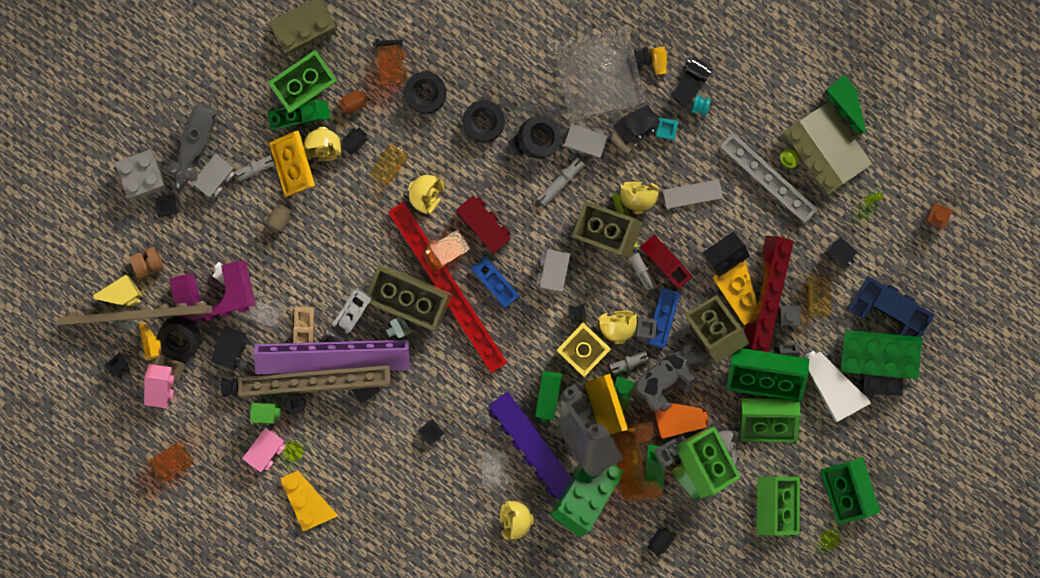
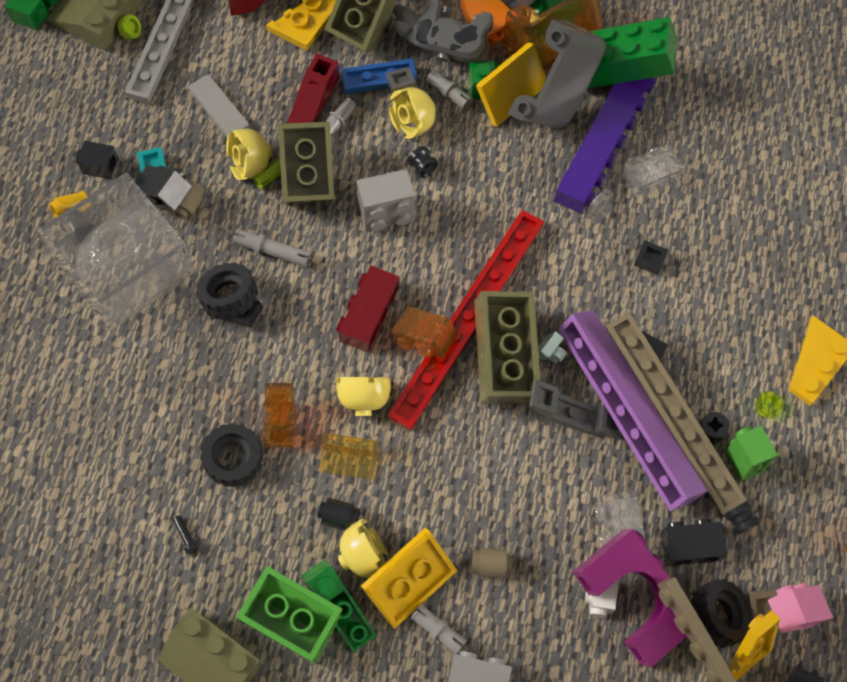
camera: 115 degrees left, 20 degrees down
(264, 449) = (794, 436): bright pink brick -> none
(303, 325) = (610, 466): tan slope -> none
(353, 101) = (286, 540): dark orange brick -> none
(391, 66) = (214, 513): clear orange brick -> none
(434, 132) = (280, 415): none -> clear orange brick
(495, 282) = (432, 266): blue plate -> none
(498, 121) = (237, 347): black tyre -> none
(516, 520) = (697, 118): light yellow cylinder -> none
(548, 396) = (533, 148): green slope -> none
(583, 350) = (461, 134): light yellow brick -> none
(585, 140) = (207, 238): light grey brick -> none
(697, 69) = (63, 158): black brick -> none
(701, 105) = (107, 134): teal wheel -> none
(726, 254) = (272, 39): black brick -> none

